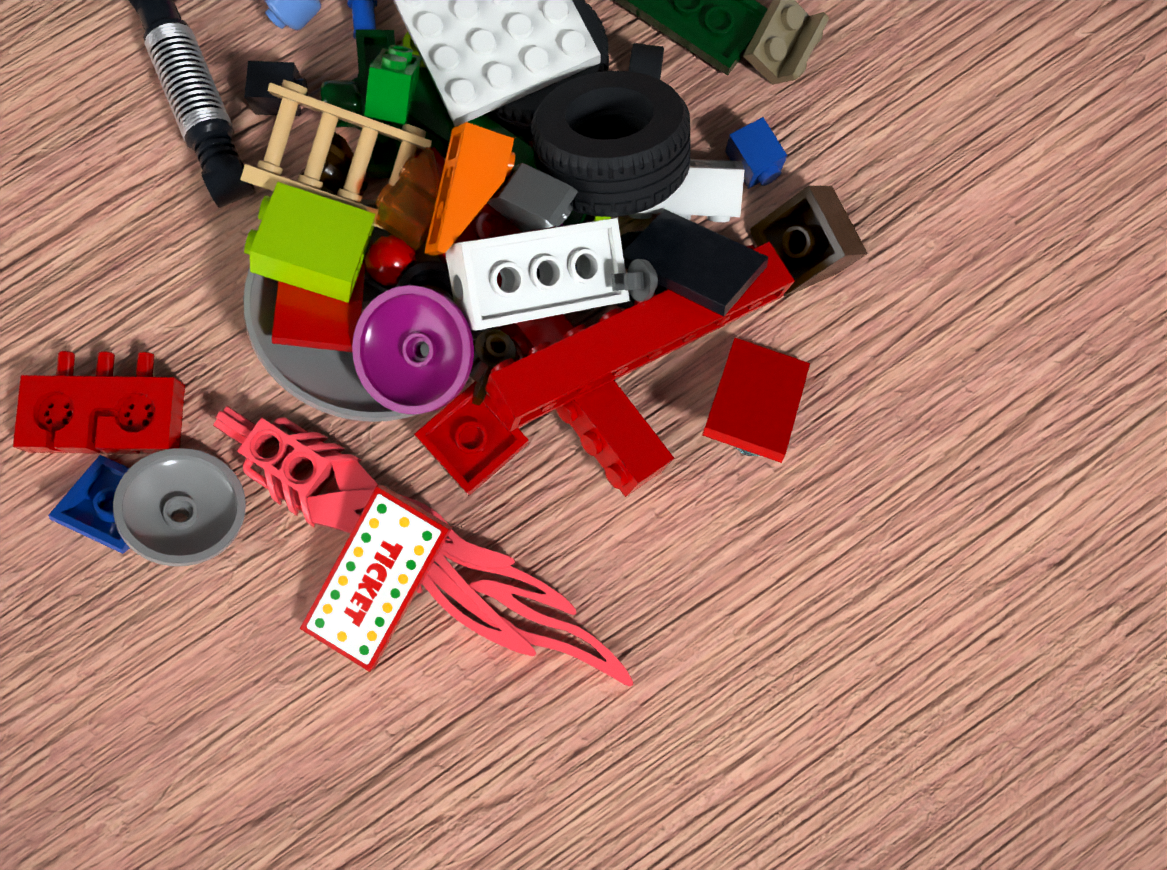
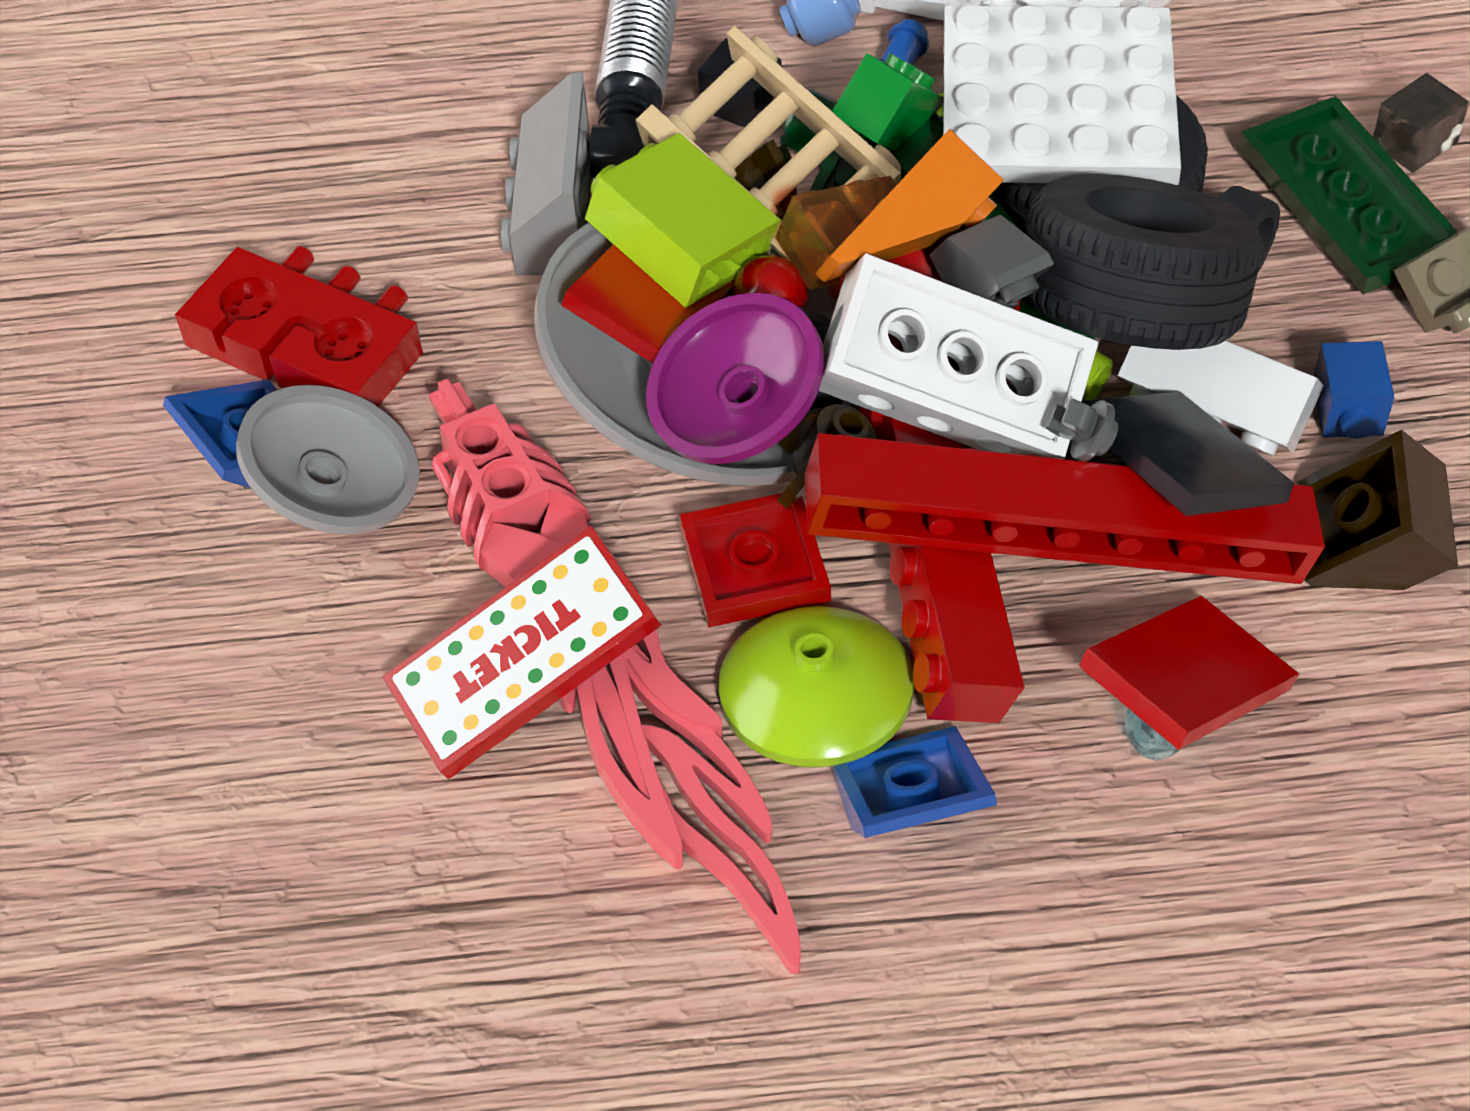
camera: 30 degrees right, 25 degrees down
(196, 227) = (551, 176): none -> light grey slope
(554, 530) = (822, 706): none -> lime dish
(638, 544) = (912, 783): none -> blue slope

